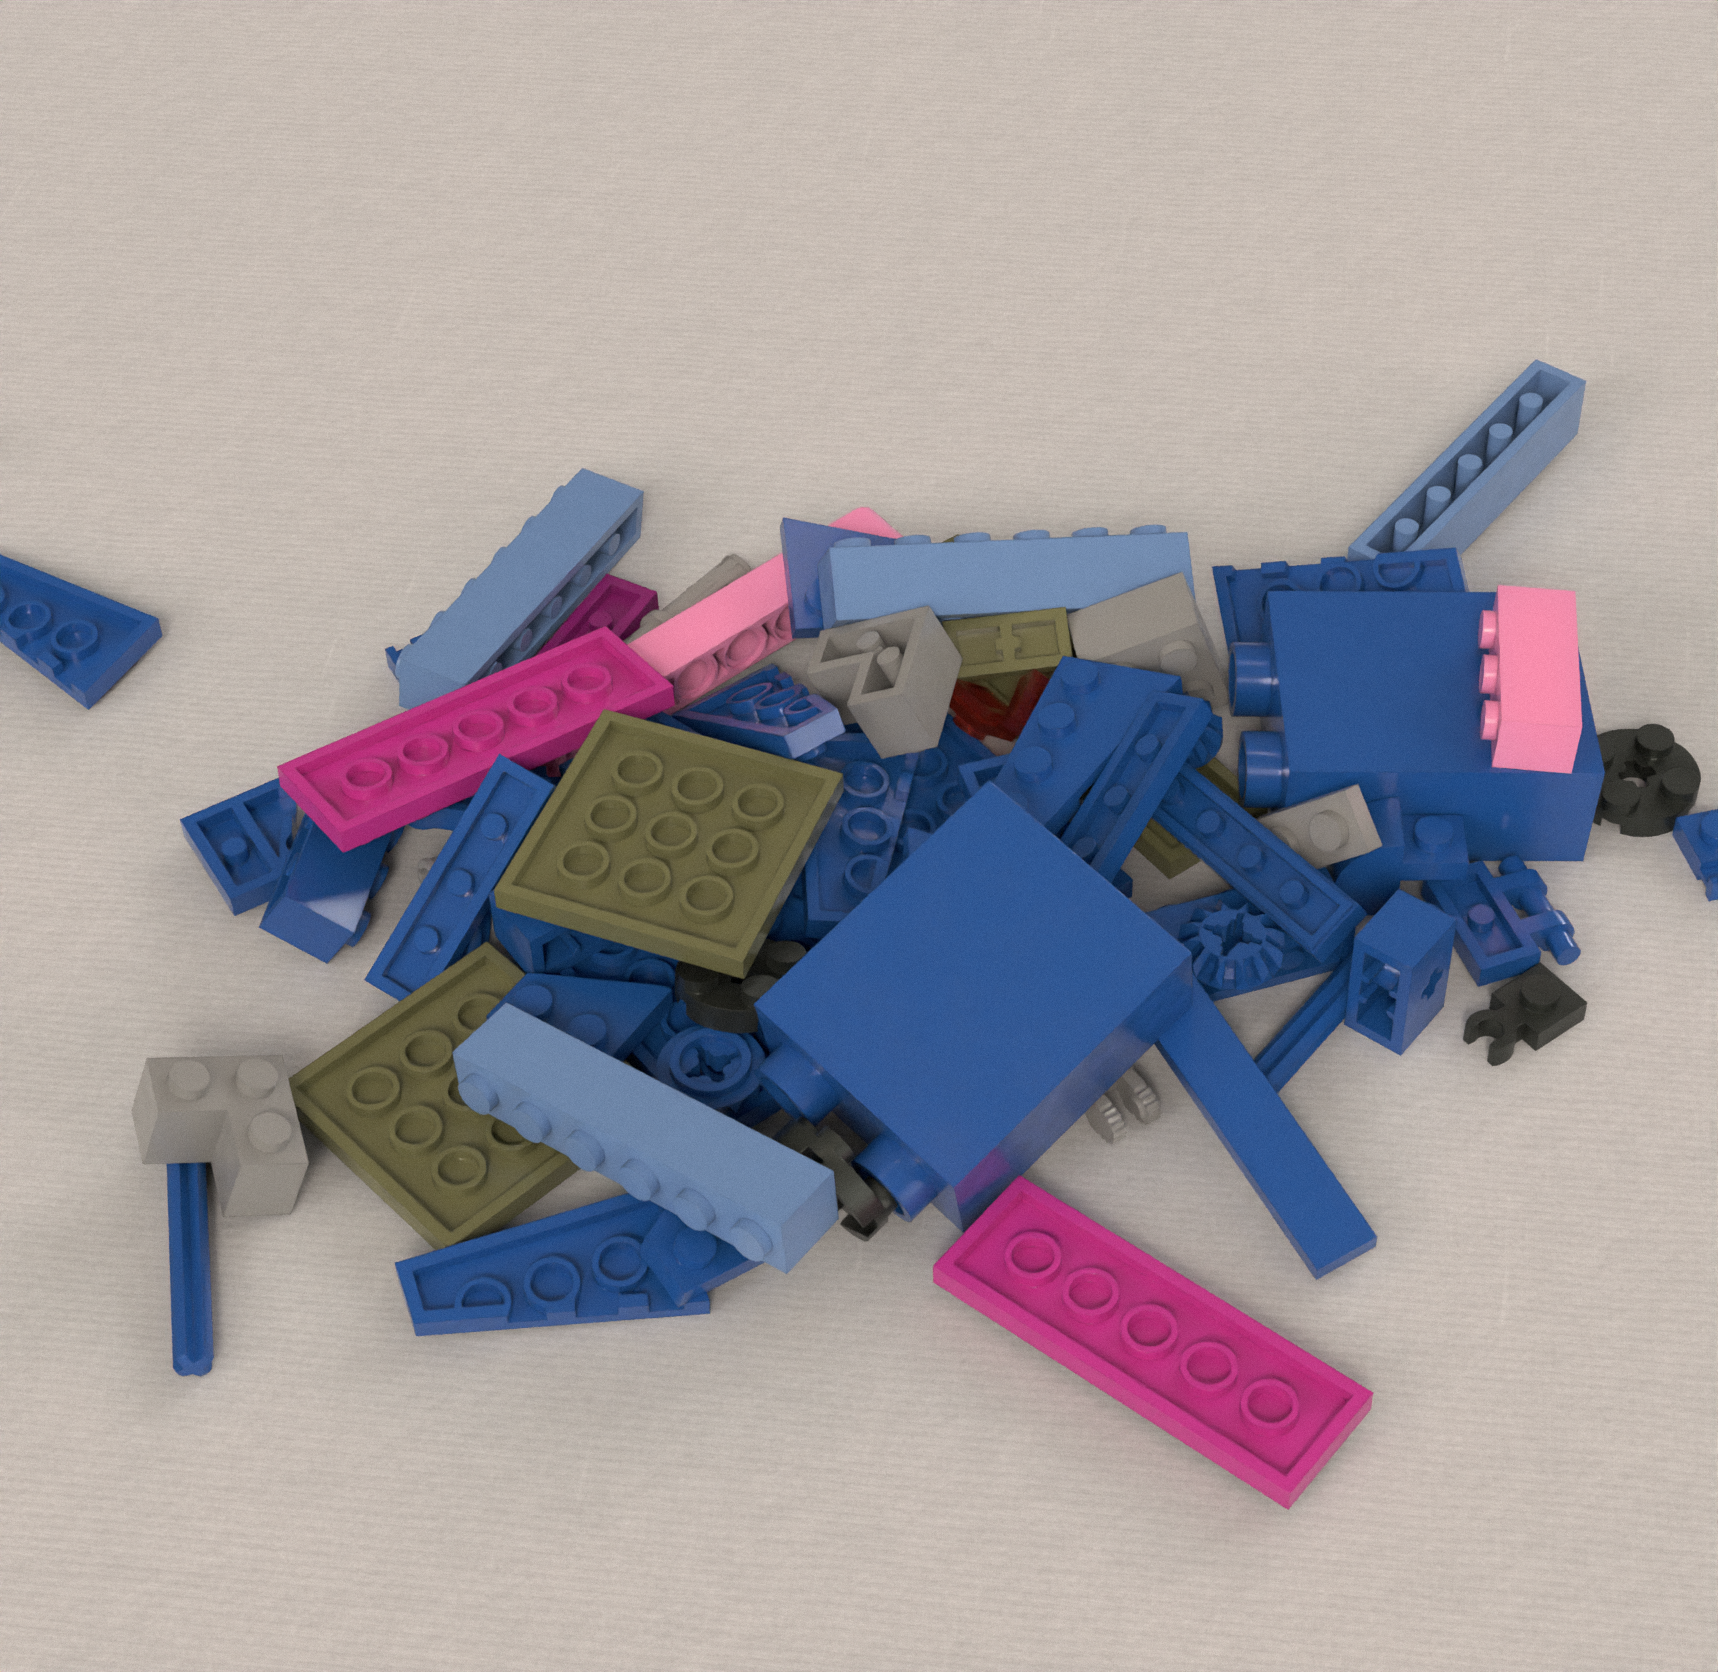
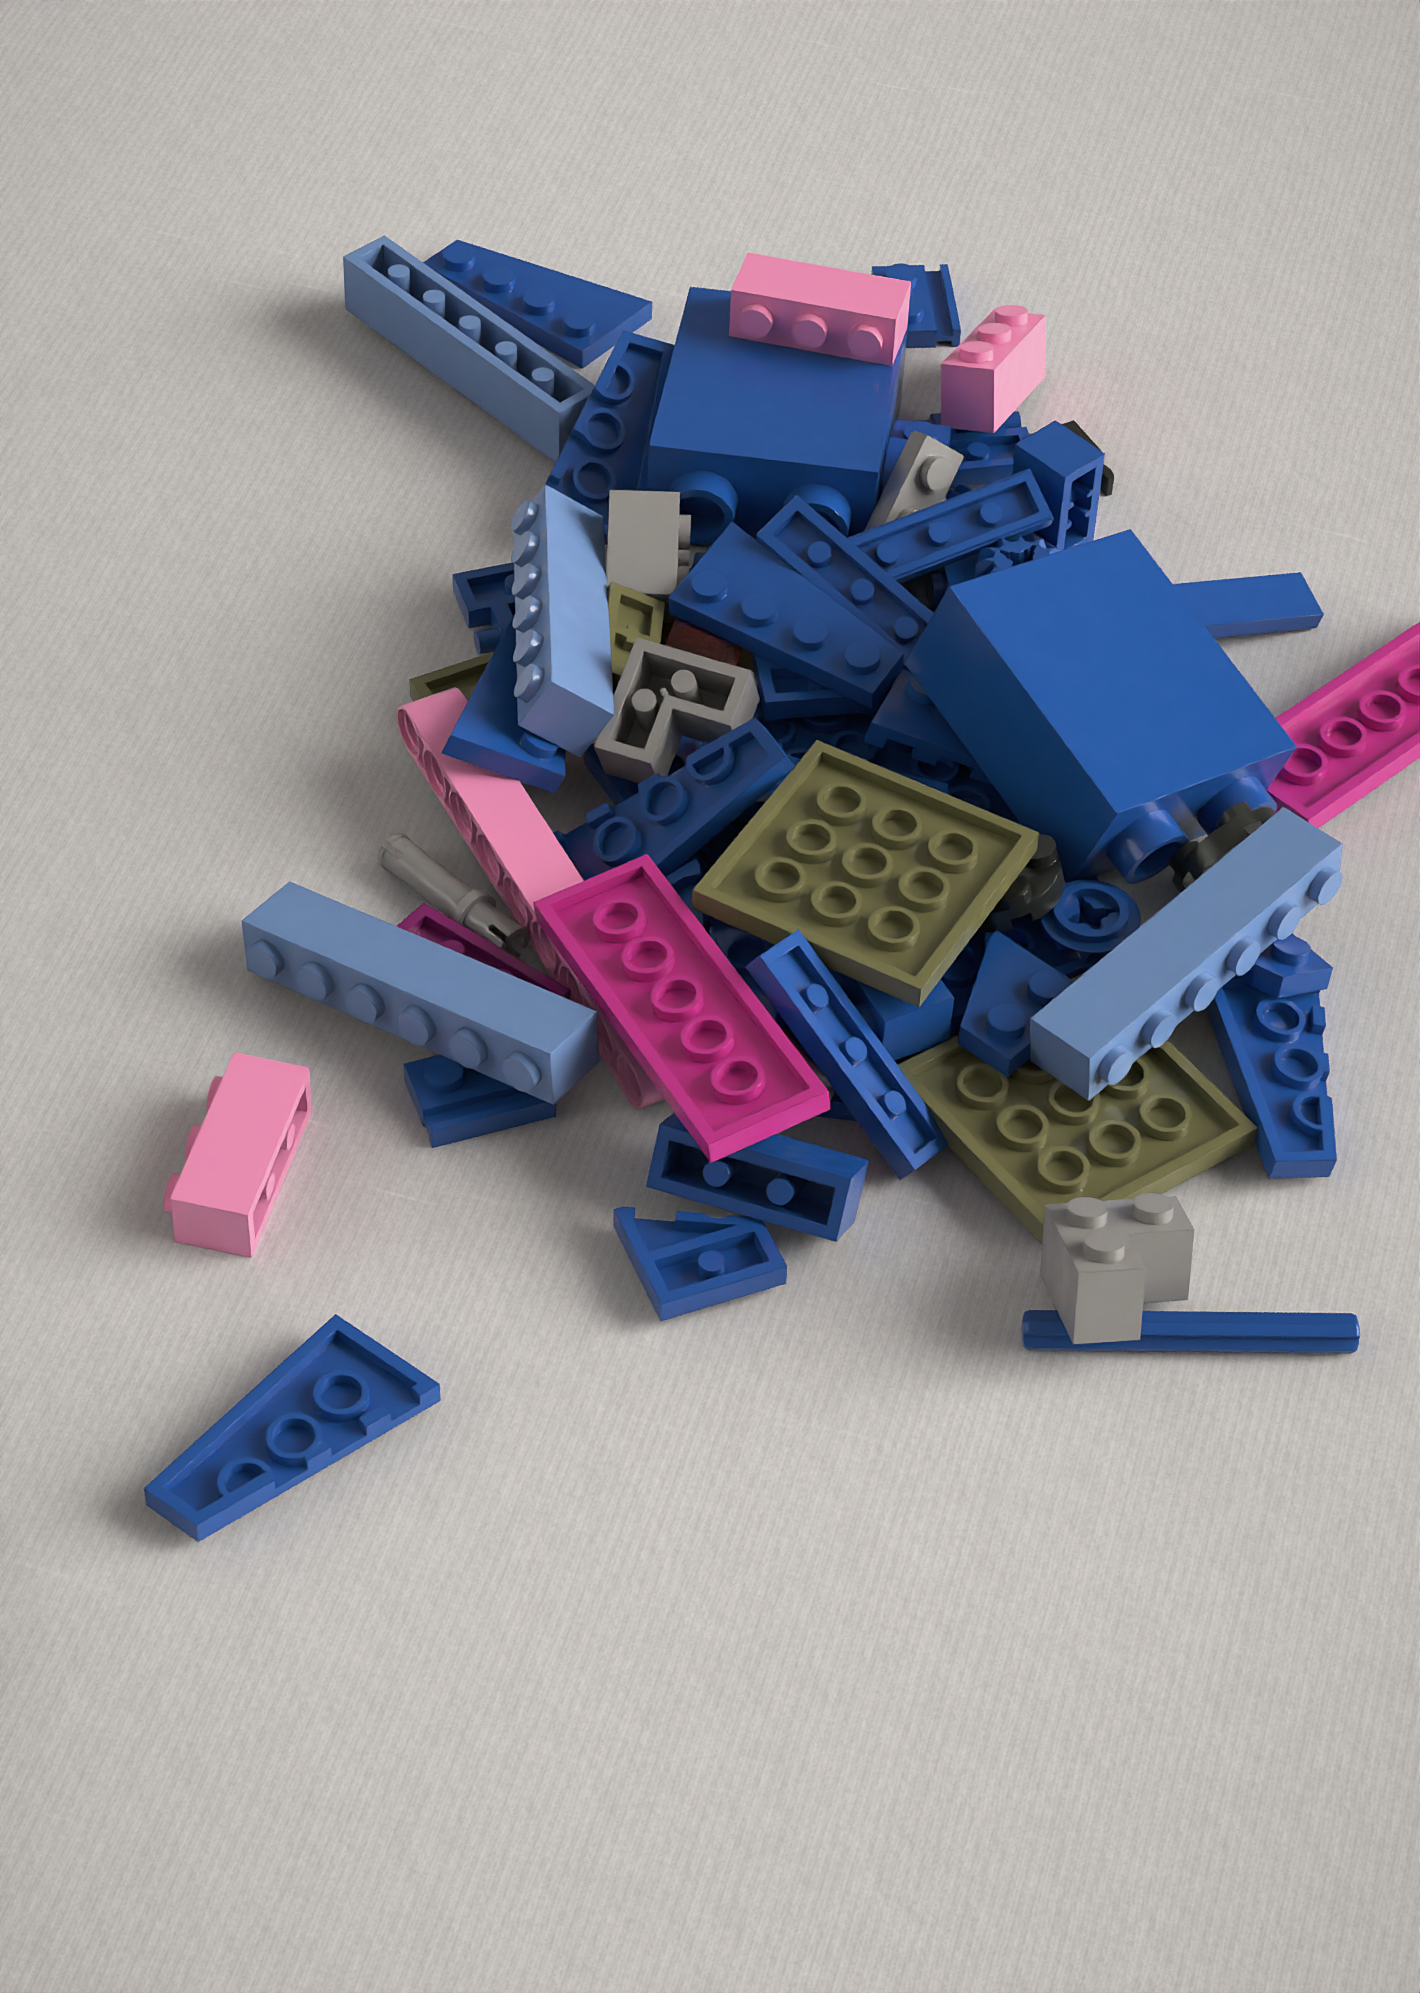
camera: 85 degrees left, 0 degrees up
(338, 536) = (239, 1154): none -> bright pink brick
(1600, 894) = (993, 370): none -> bright pink brick
(1610, 543) = (547, 306): none -> blue wing

